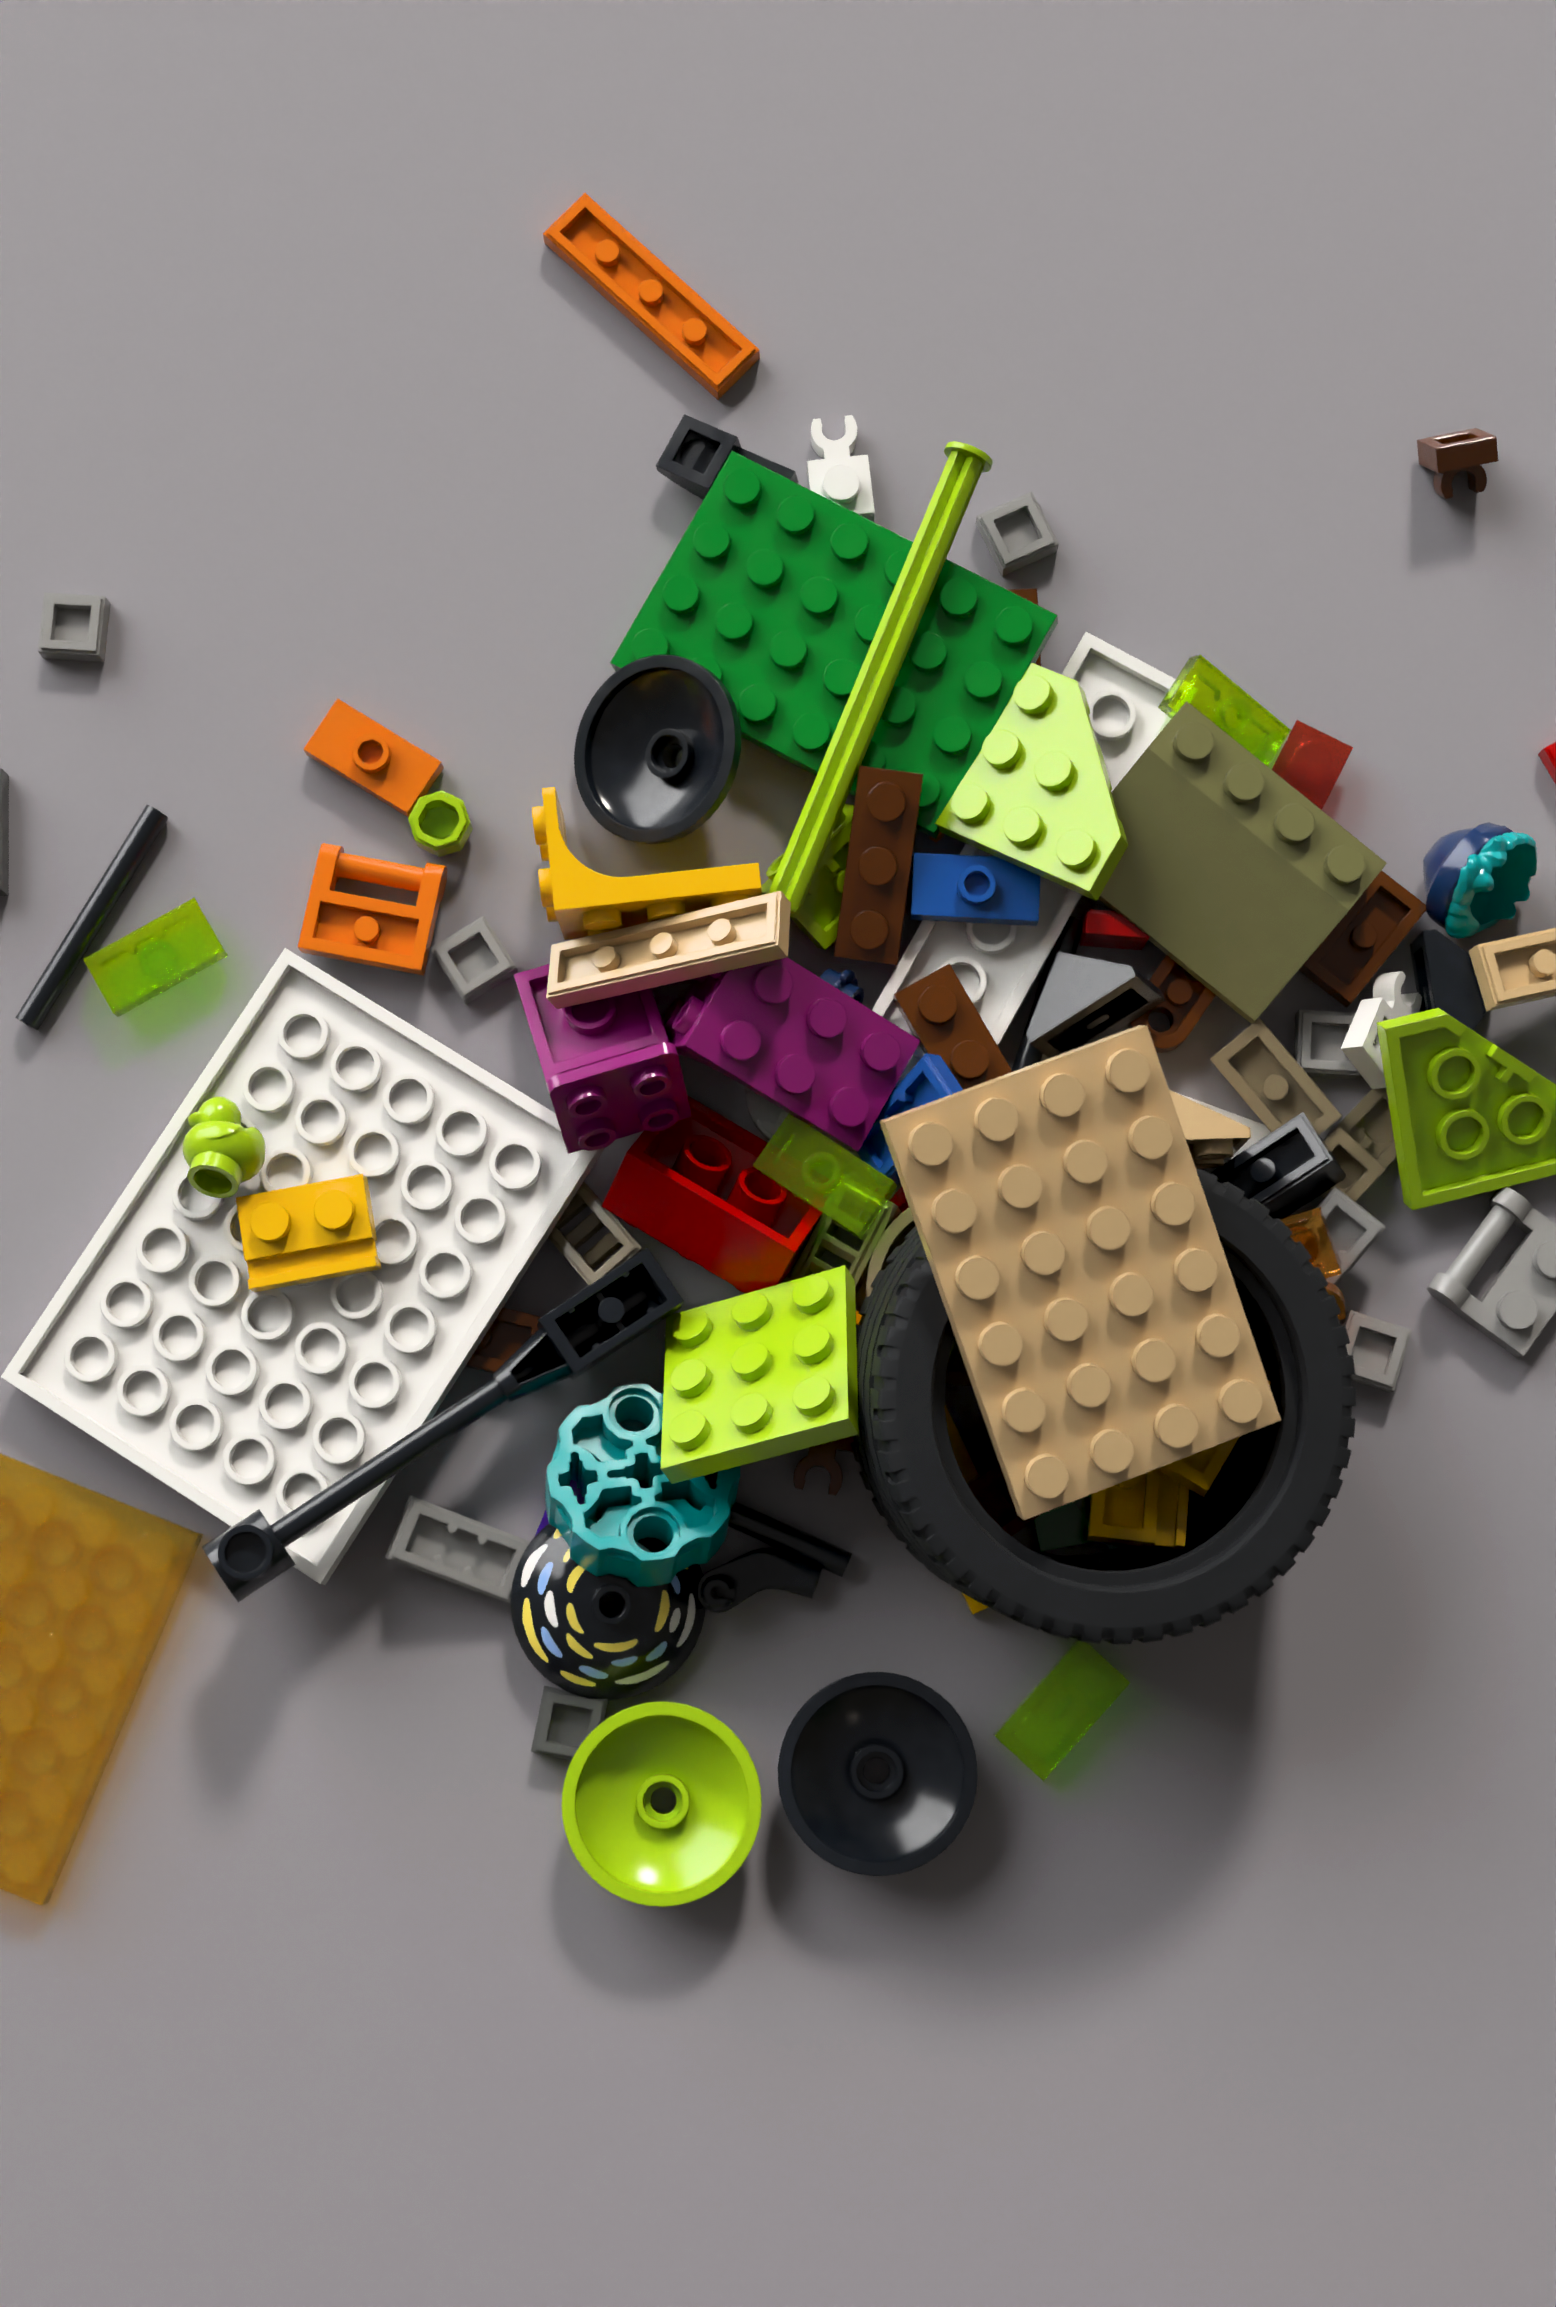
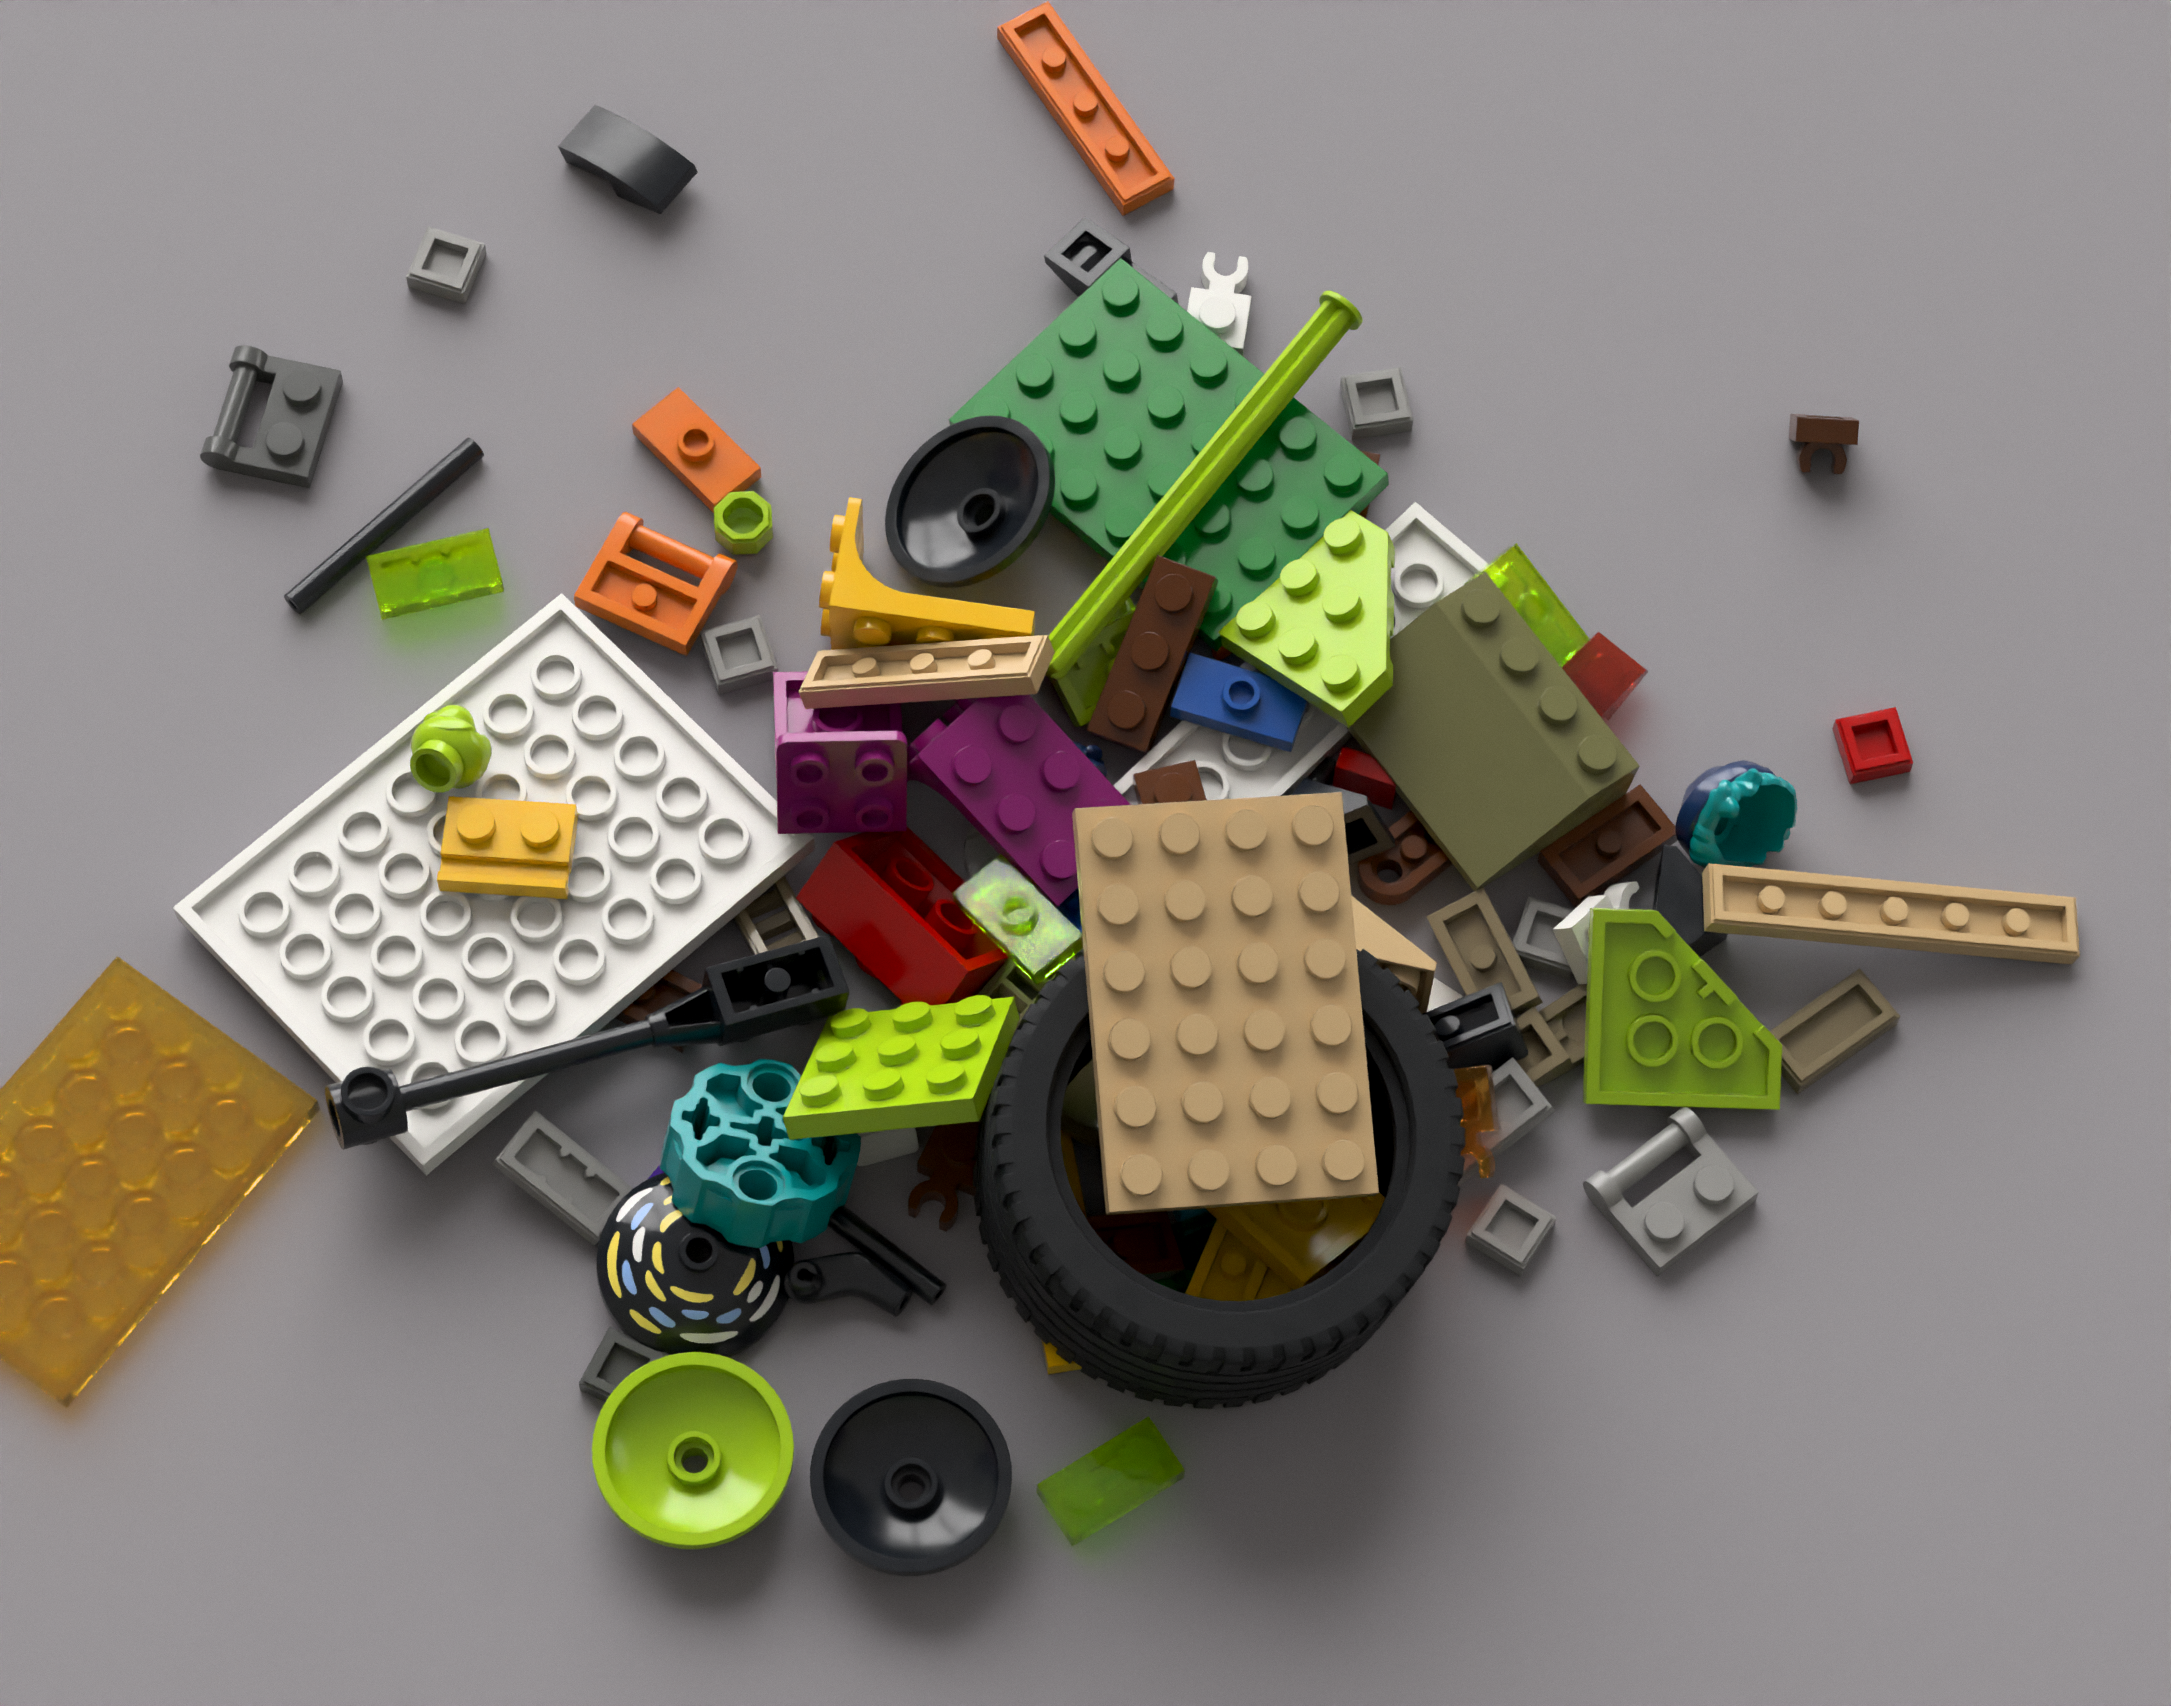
camera: 10 degrees right, 15 degrees down
(221, 468) = (629, 157): none -> slope

